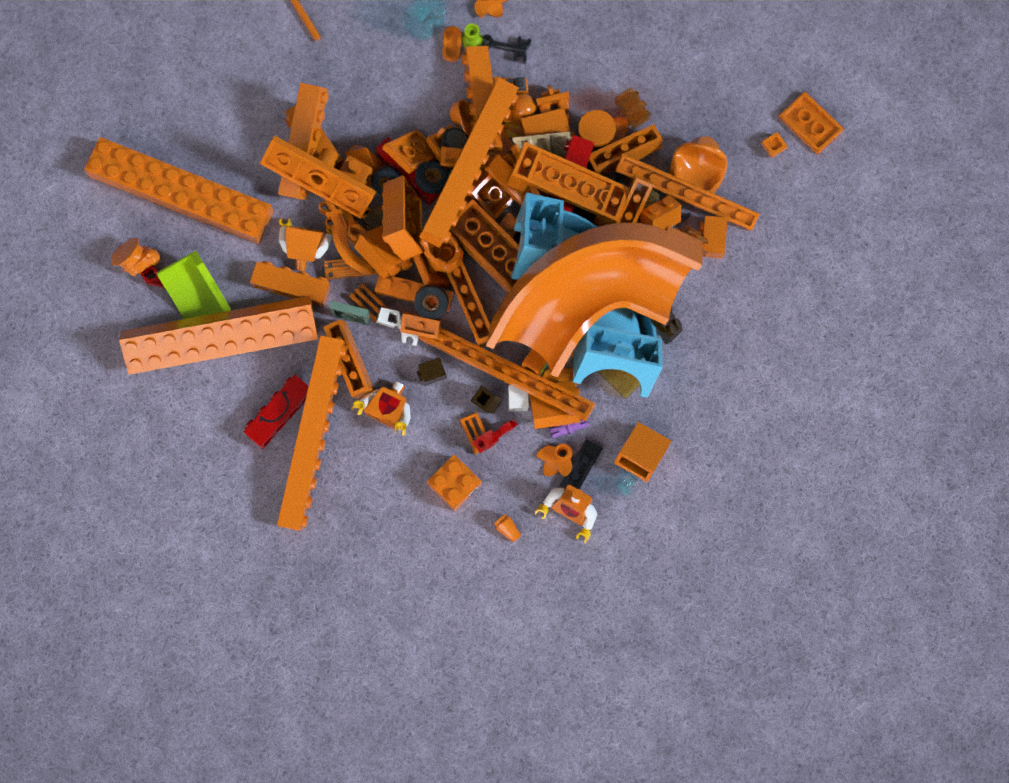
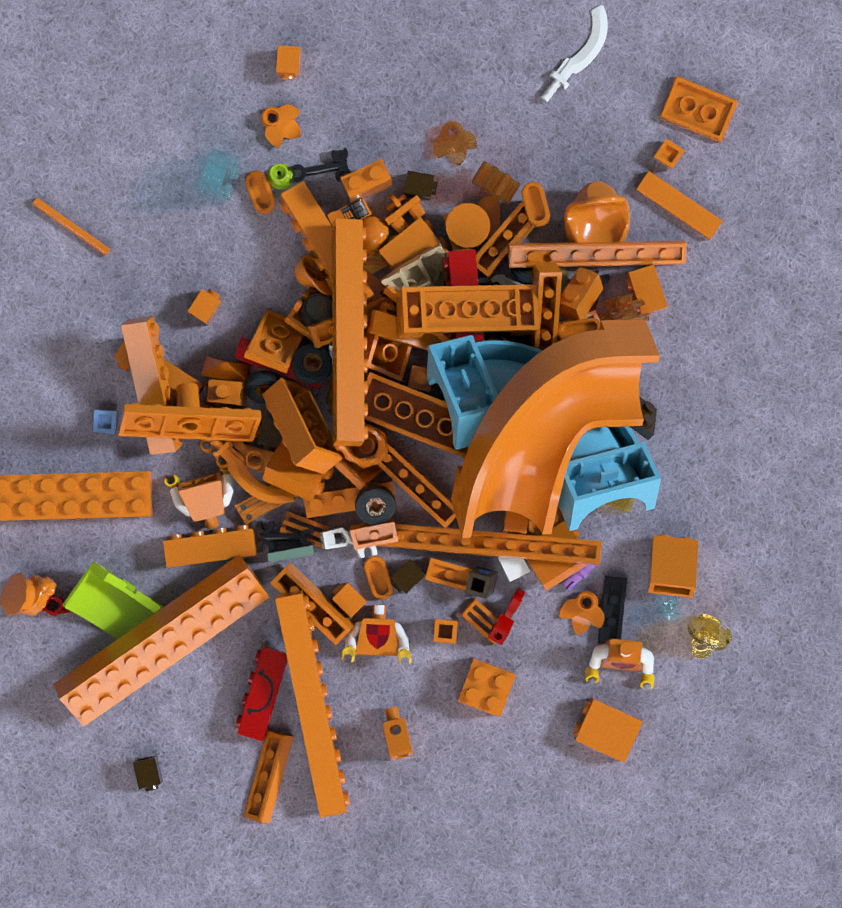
camera: 25 degrees left, 10 degrees up
(160, 433) = (148, 773): none -> dark brown brick
(252, 479) = (268, 776): none -> orange slope
(254, 158) = (105, 421): none -> medium blue plate
(339, 295) = (267, 536): none -> black bar
(366, 489) = (398, 745): none -> orange torso
(371, 106) = (205, 305): none -> orange brick
(378, 369) = (348, 599): none -> orange brick
(409, 364) = (378, 577): none -> orange tile
(441, 424) = (445, 630): none -> orange brick
(462, 383) = (447, 574): none -> orange plate
(507, 527) = (563, 709): orange cone -> none
(534, 558) = (607, 729): none -> orange brick
(535, 64) = (366, 181): none -> orange brick
(576, 86) = (420, 185): none -> dark brown brick
(613, 72) = (455, 146): none -> clear orange plate
(649, 517) = (708, 633): none -> clear yellow tile
(655, 133) = (535, 204): none -> orange tile
(740, 49) = (583, 57): none -> white sword
(766, 186) = (679, 205): none -> orange tile

